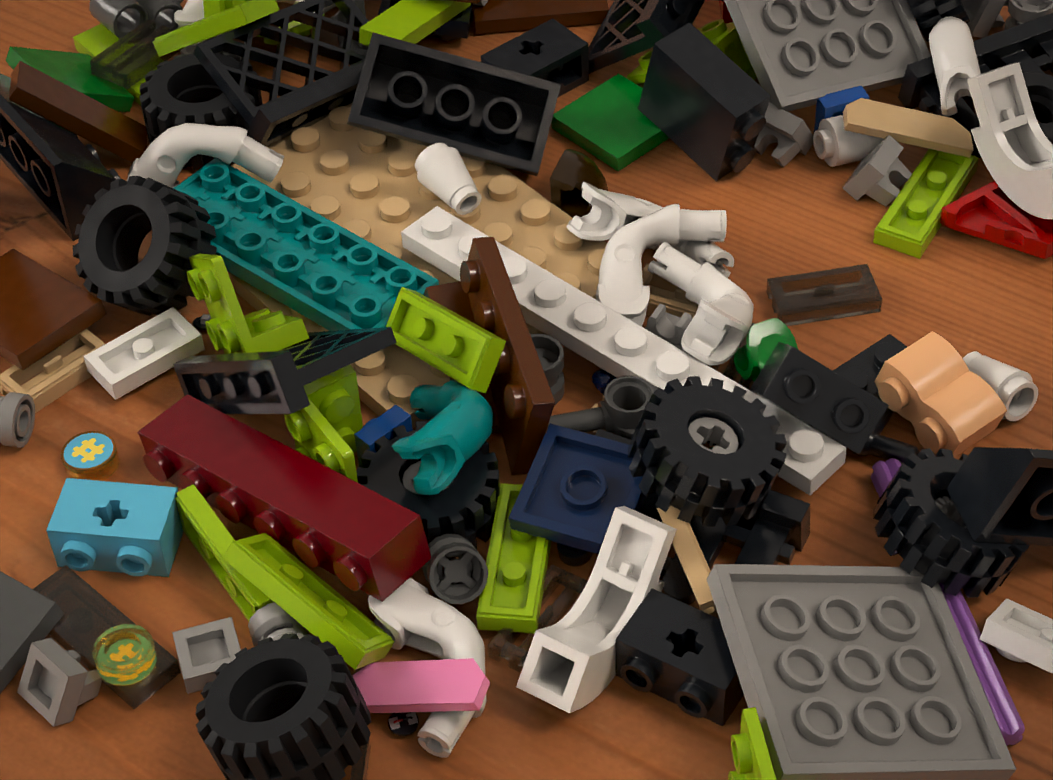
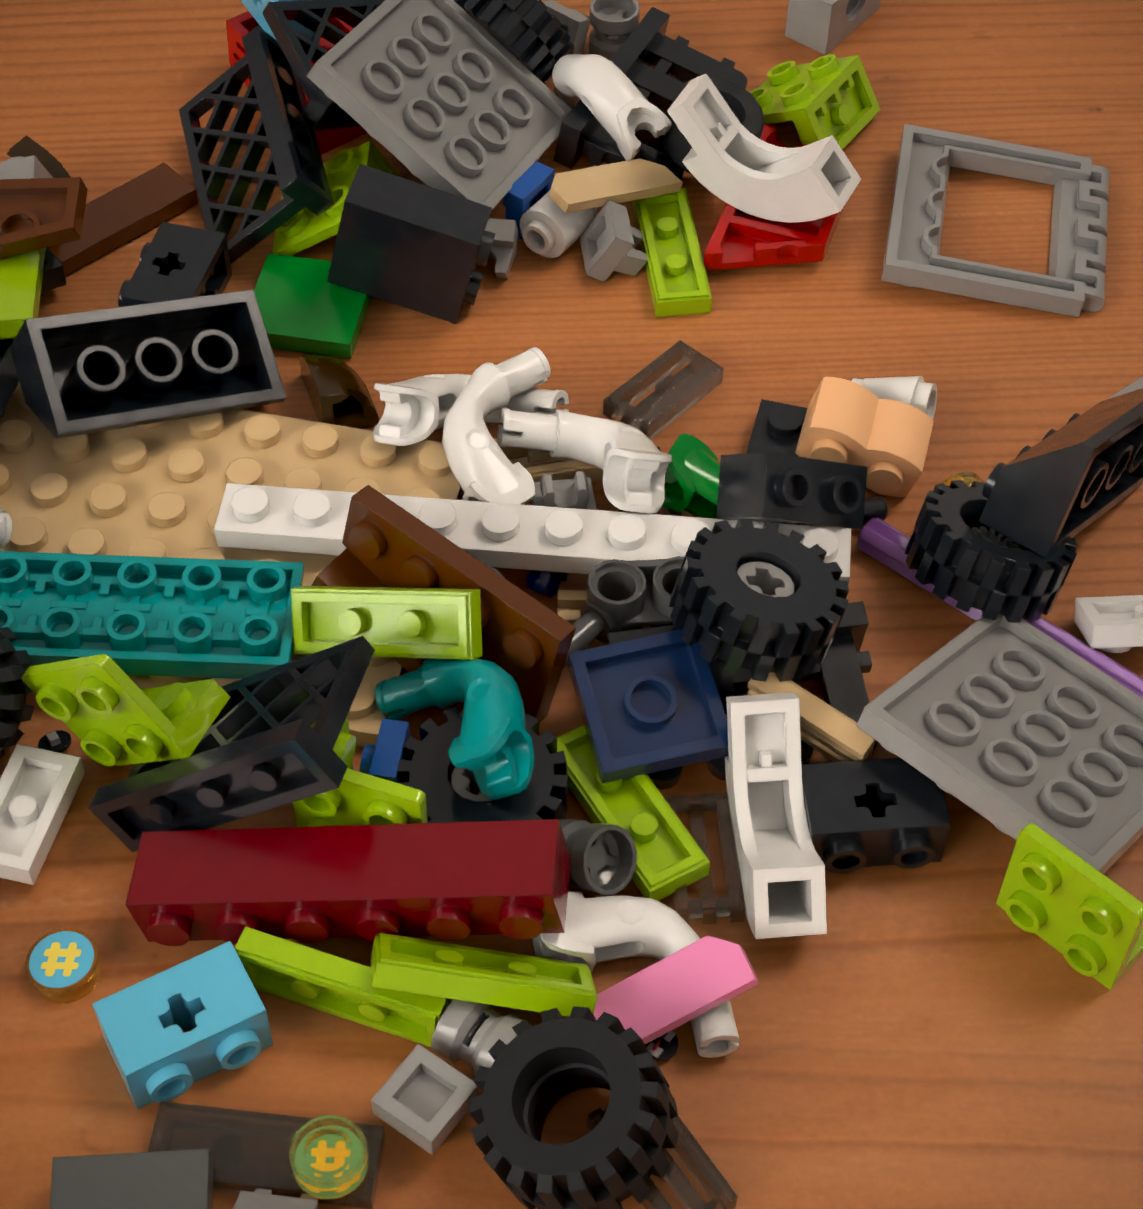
camera: 40 degrees left, 5 degrees up
(447, 177) = (211, 447): white cone -> none

